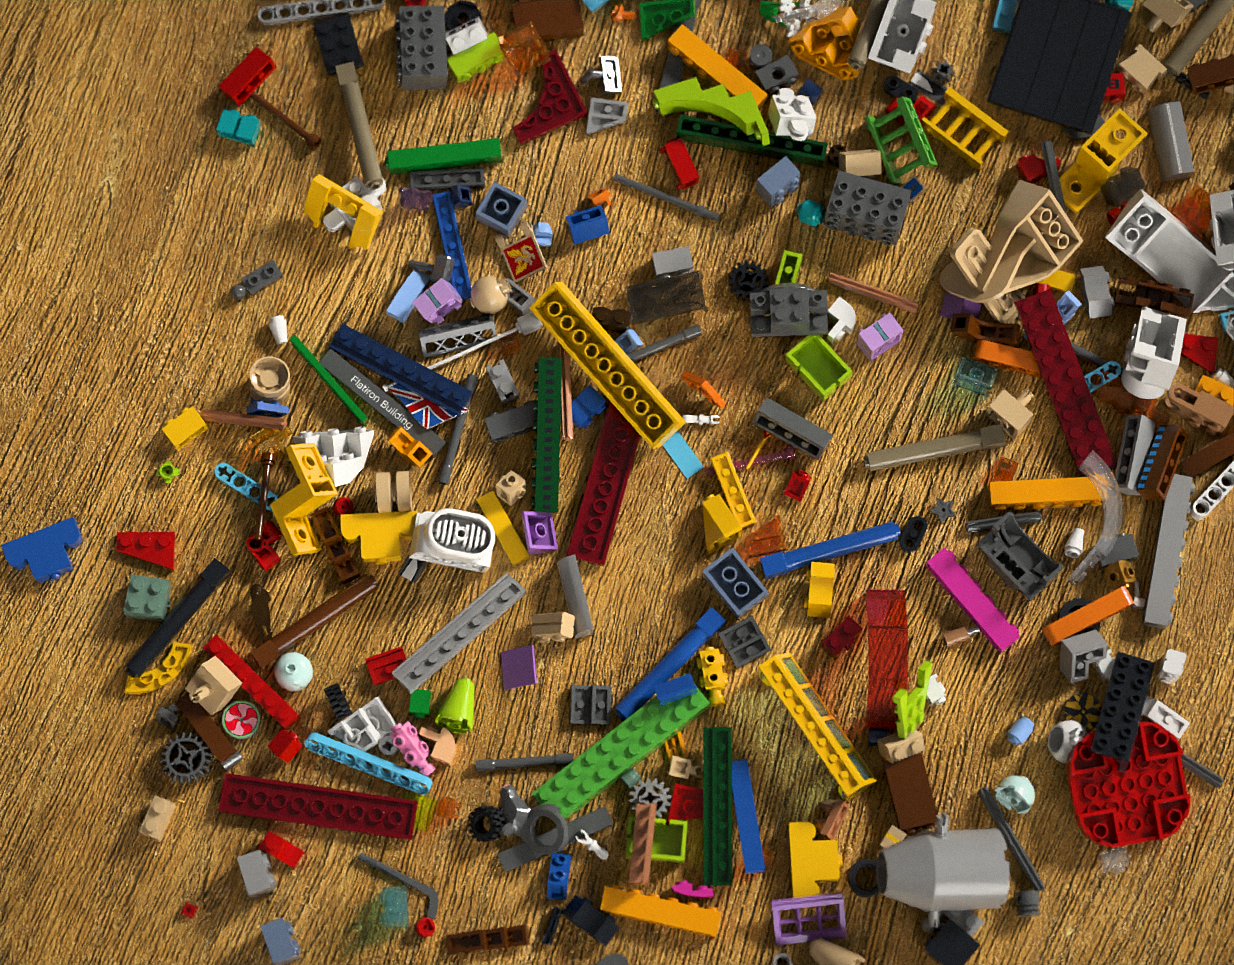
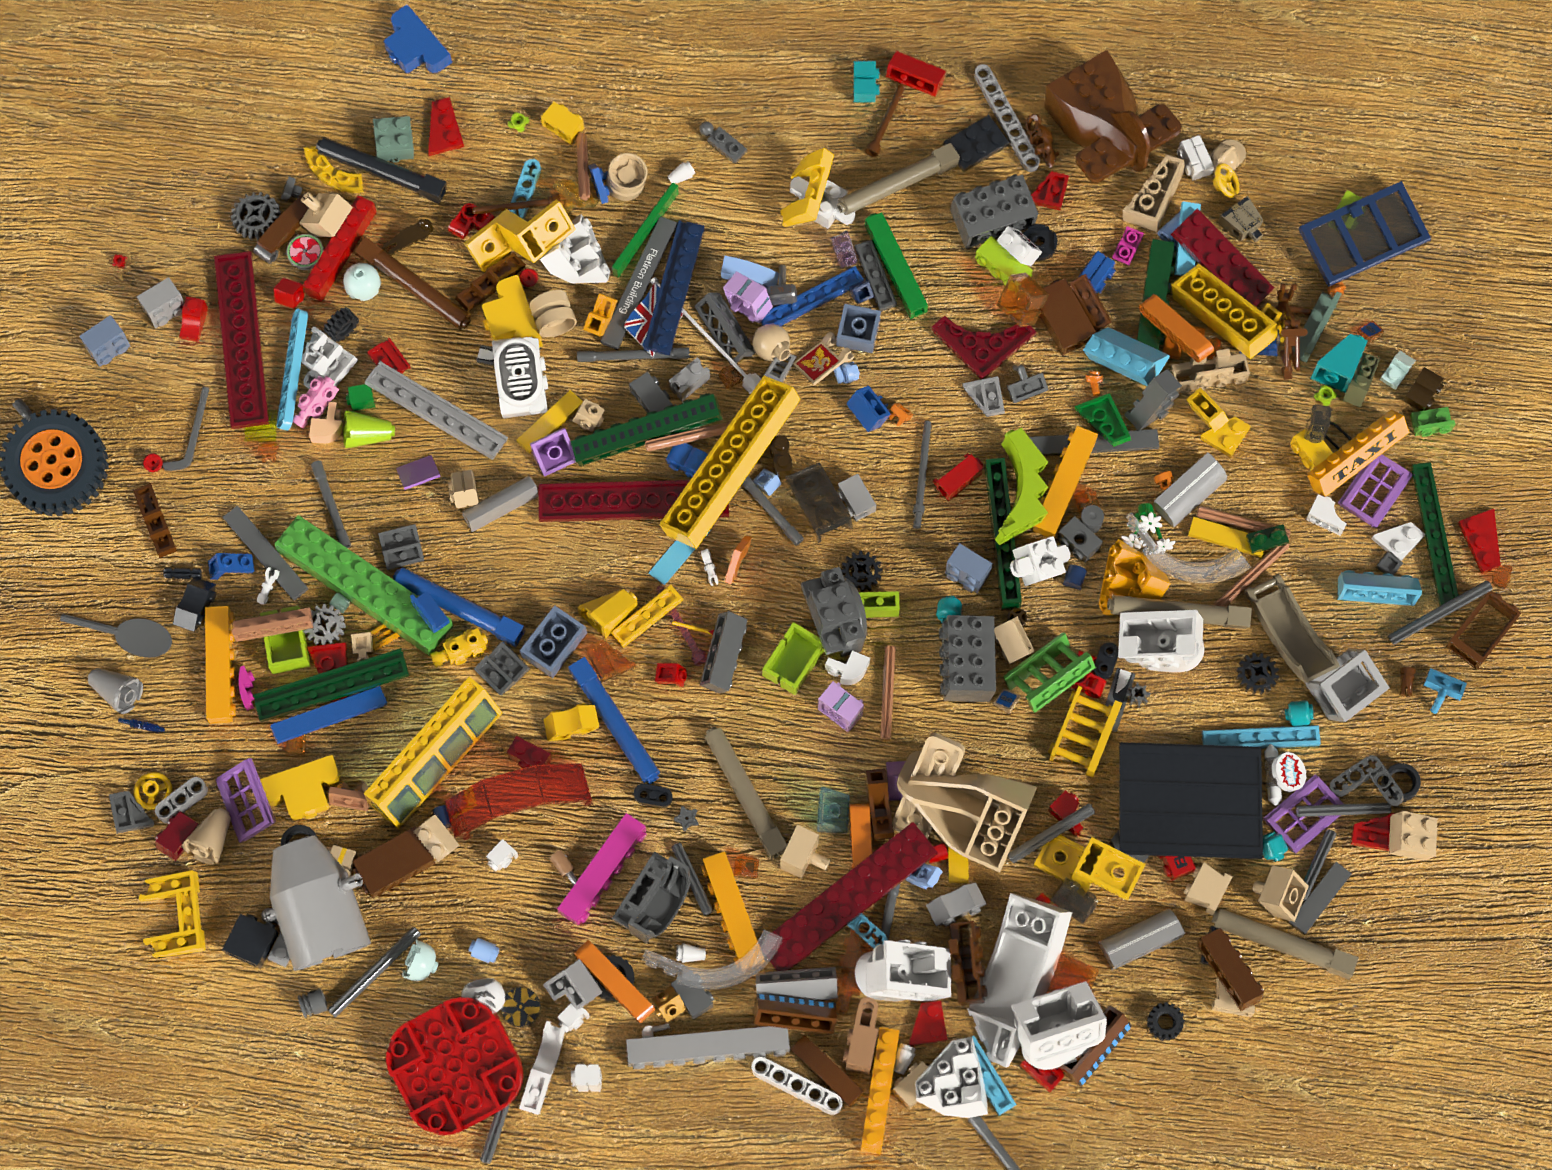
camera: 70 degrees right, 5 degrees down
(157, 818) = (194, 208): tan piece -> none
(394, 907) = (164, 431): clear light blue brick -> none
(477, 823) = (261, 485): black tyre -> none
(522, 820) = (272, 515): dark grey animal -> none
(911, 708) = (471, 836): lime wing -> none
(1114, 860) = (377, 1076): clear brick -> none
(1122, 708) = (526, 1036): black bracket -> none

